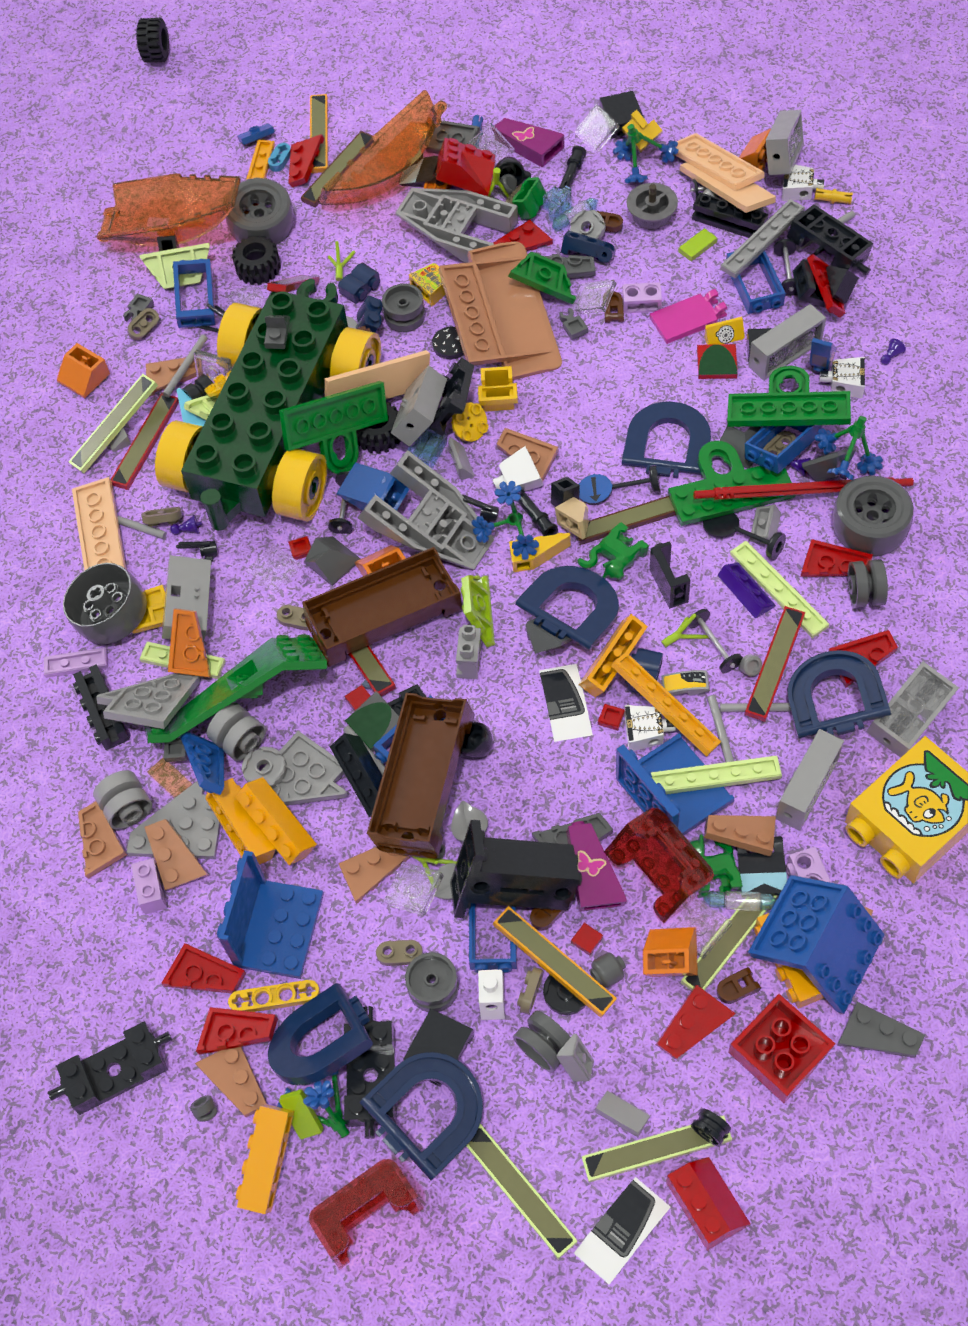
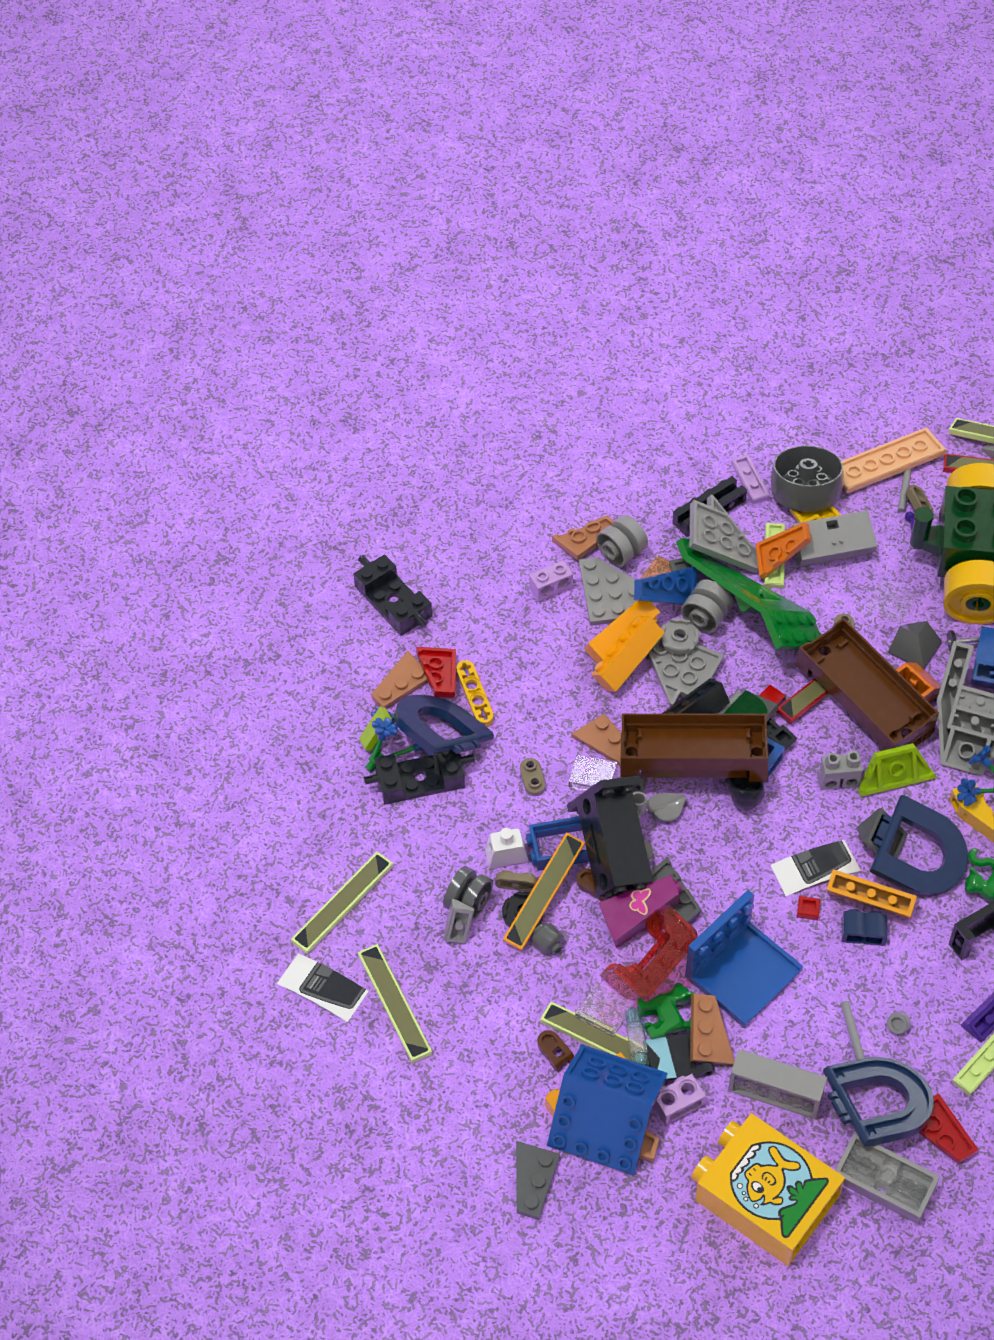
camera: 75 degrees right, 5 degrees down
(173, 858) = (577, 593): nougat wing -> none
(203, 972) = (486, 636): red wing -> none
(203, 1106) = (373, 663): dark grey tile -> none
(207, 548) = (894, 544): black plant -> none
(264, 1159) = (335, 710): light orange brick -> none
(268, 922) = (536, 665): blue bracket -> none
(299, 547) = (920, 615): red tile -> none
(357, 1202) = (293, 768): clear red windscreen -> none
(419, 977) = (506, 801): dark grey wheel -> none
(441, 1036) = (451, 818): black panel -> none
(459, 1131) = (384, 846): dark blue piece -> none
(587, 939) = (575, 920): red tile -> none
(622, 1113) = (420, 971): light grey slope -> none
(645, 727) = (802, 936): white torso -> none
(666, 704) = (827, 946): light orange tile -> none
(670, 952) = (570, 983): orange slope -> none
(677, 634) = (917, 953): lime plant -> none
(688, 682) = (862, 967): slope -> none
(693, 1021) = (513, 1016): red wing -> none
(707, 1202) = (353, 1045): red slope -> none
(711, 1127) = (414, 1034): black wheel -> none
(719, 775) = (764, 1002): yellowish green tile -> none
(720, 728) = (814, 1008): light grey bar -> none
(730, 662) = (938, 967): black axle -> none
(774, 664) = (907, 1043): olive tile -> none
(781, 1048) = (498, 1086): red slope -> none

